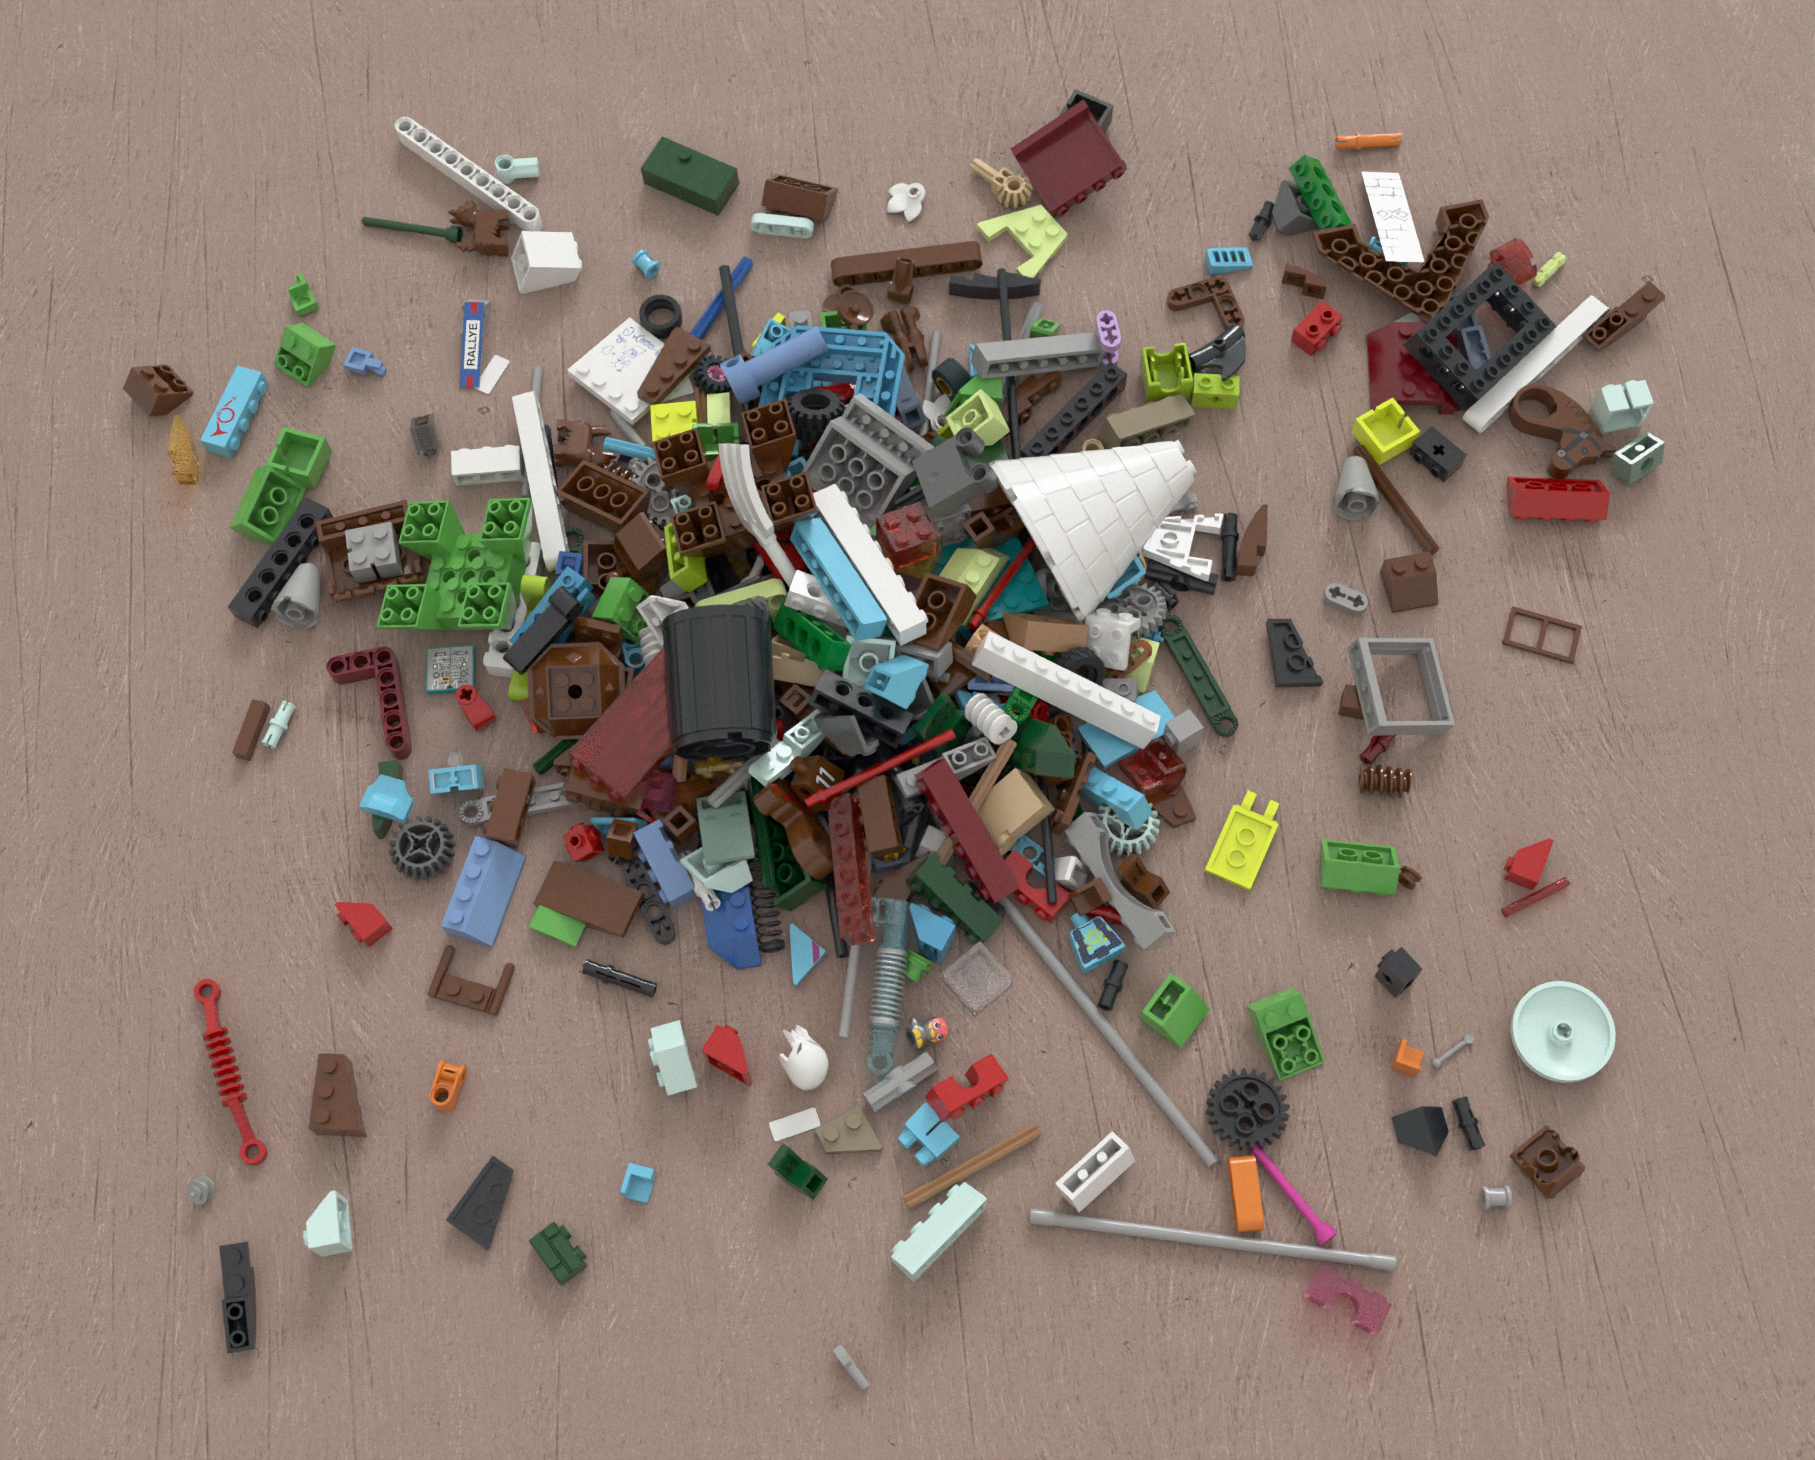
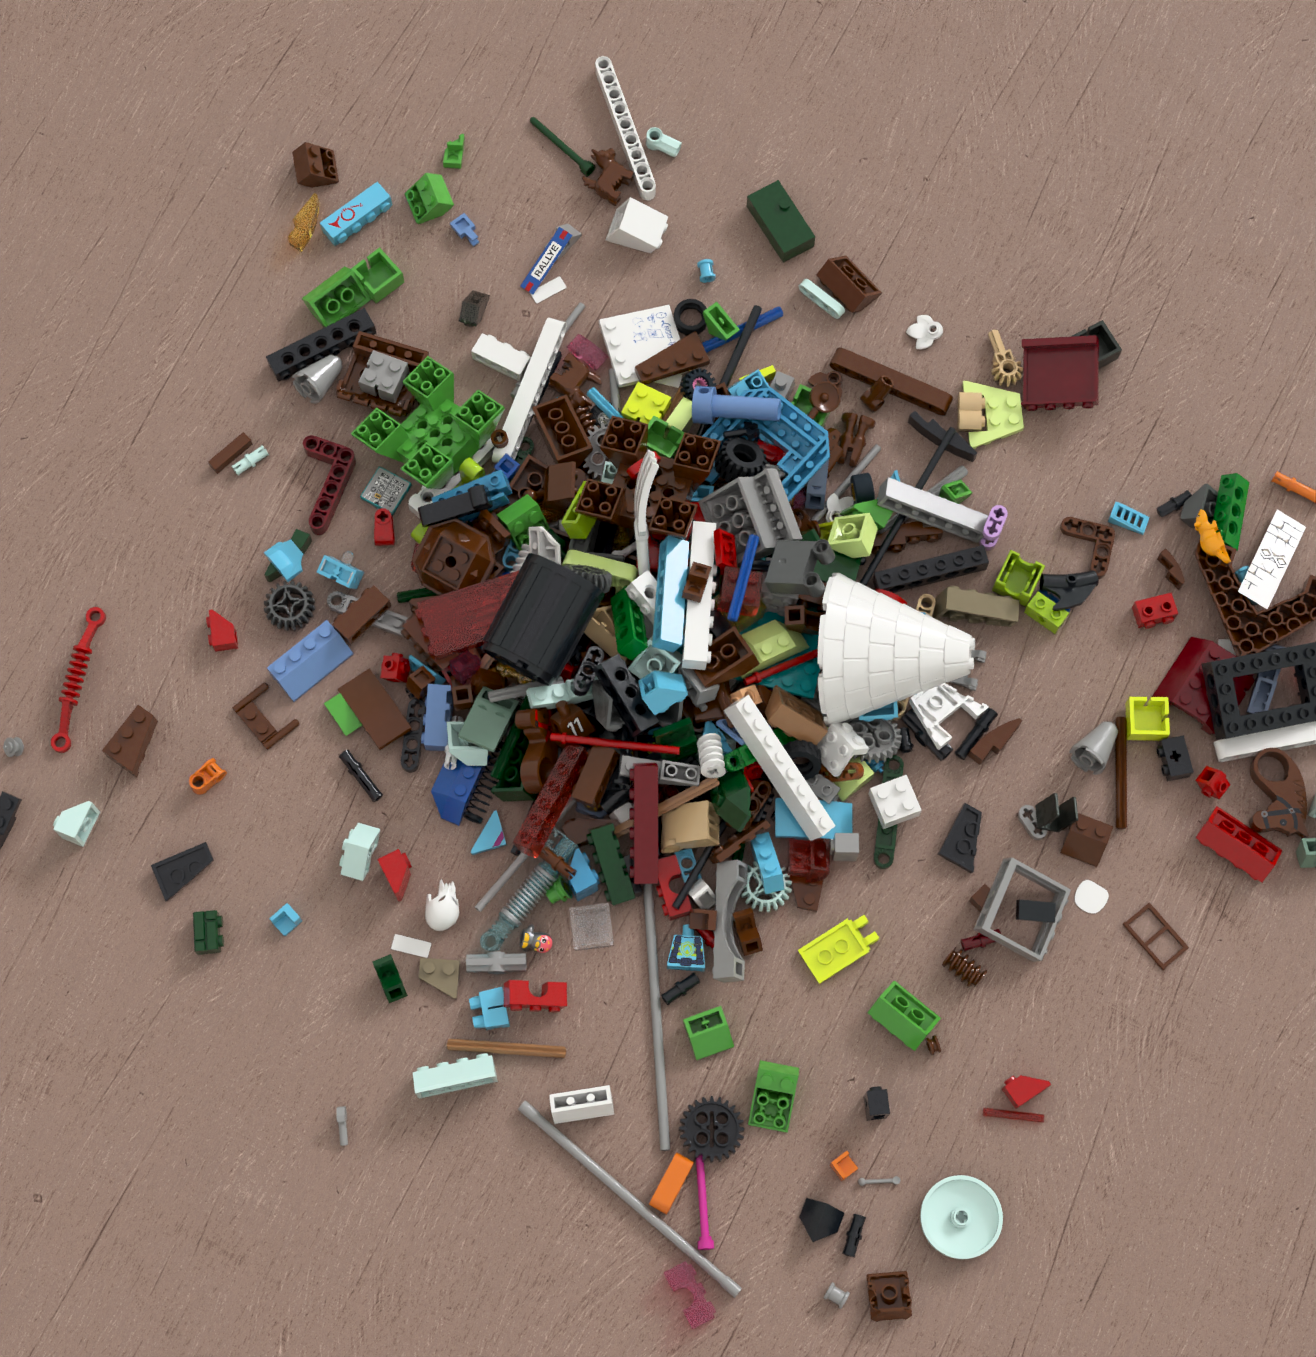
camera: 30 degrees right, 5 degrees up
(541, 534) = (495, 442): none -> reddish brown bush
(575, 408) = (588, 351): none -> clear pink slope
(695, 304) = (719, 323): none -> bright green slope
(797, 720) = (582, 676): none -> black beam
(801, 378) = (750, 430): none -> black bar
(858, 549) = (696, 582): none -> reddish brown slope
(864, 503) = (724, 549): none -> red bracket
(901, 931) = (557, 863): none -> reddish brown pin
(905, 516) = (743, 578): none -> blue axle
(1005, 247) = (970, 412): none -> tan brick
(1200, 658) = (894, 801): none -> white brick
(1327, 228) = (1210, 540): none -> light orange animal
(1366, 575) = (1060, 815): none -> pearl dark grey piece
(1416, 678) = (1035, 911): none -> black tile
(1452, 636) = (1091, 897): none -> white sticker
(1490, 454) = (1212, 782): none -> red brick

